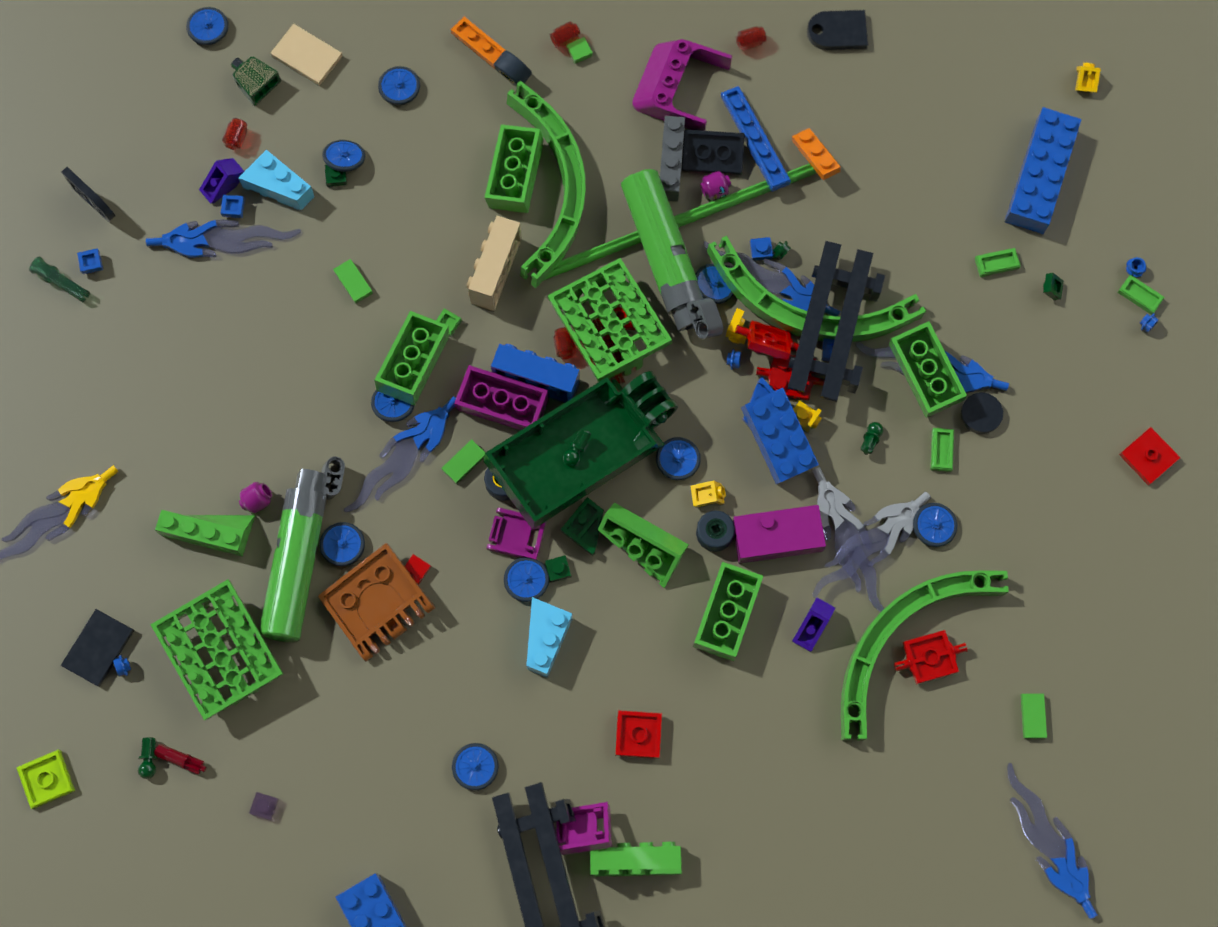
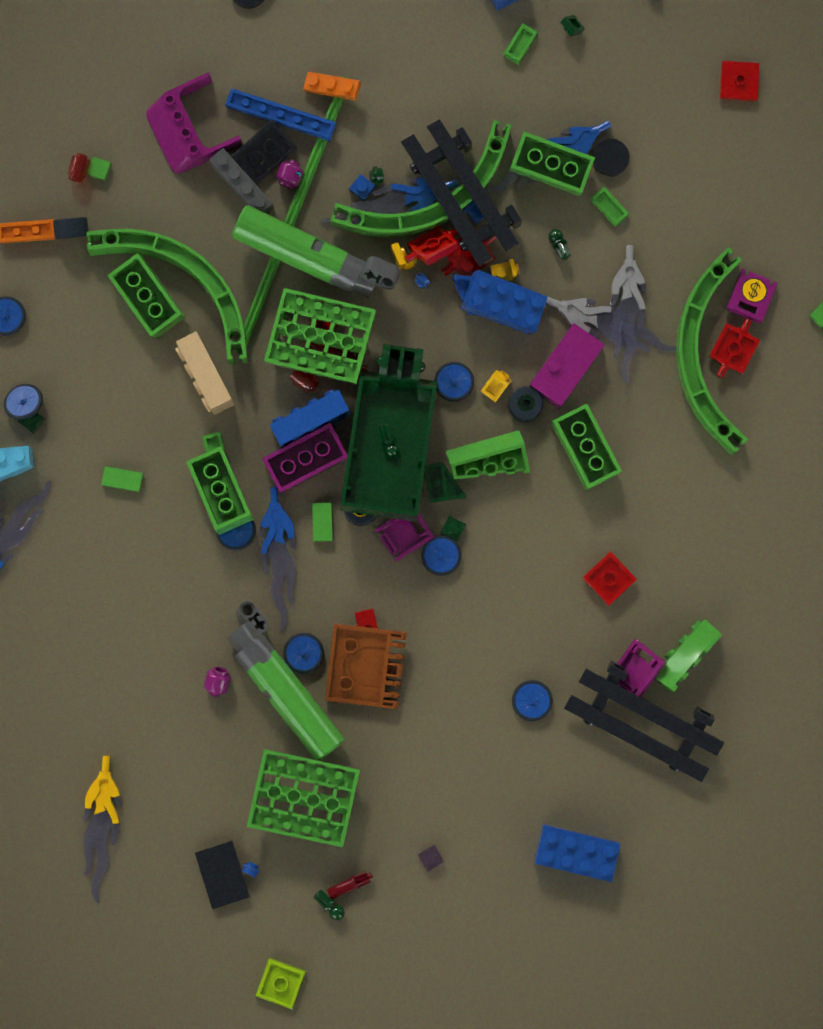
camera: 50 degrees left, 10 degrees up
(216, 532) = (213, 729): bright green wedge -> none
(546, 635) = (491, 577): medium azure wedge -> none
(712, 284) = (357, 244): blue wheel -> none
(751, 38) = (205, 45): clear red brick -> none
(813, 624) = (644, 400): dark purple slope -> none
(935, 524) = (654, 261): blue wheel -> none
(992, 627) = (753, 291): none -> magenta container

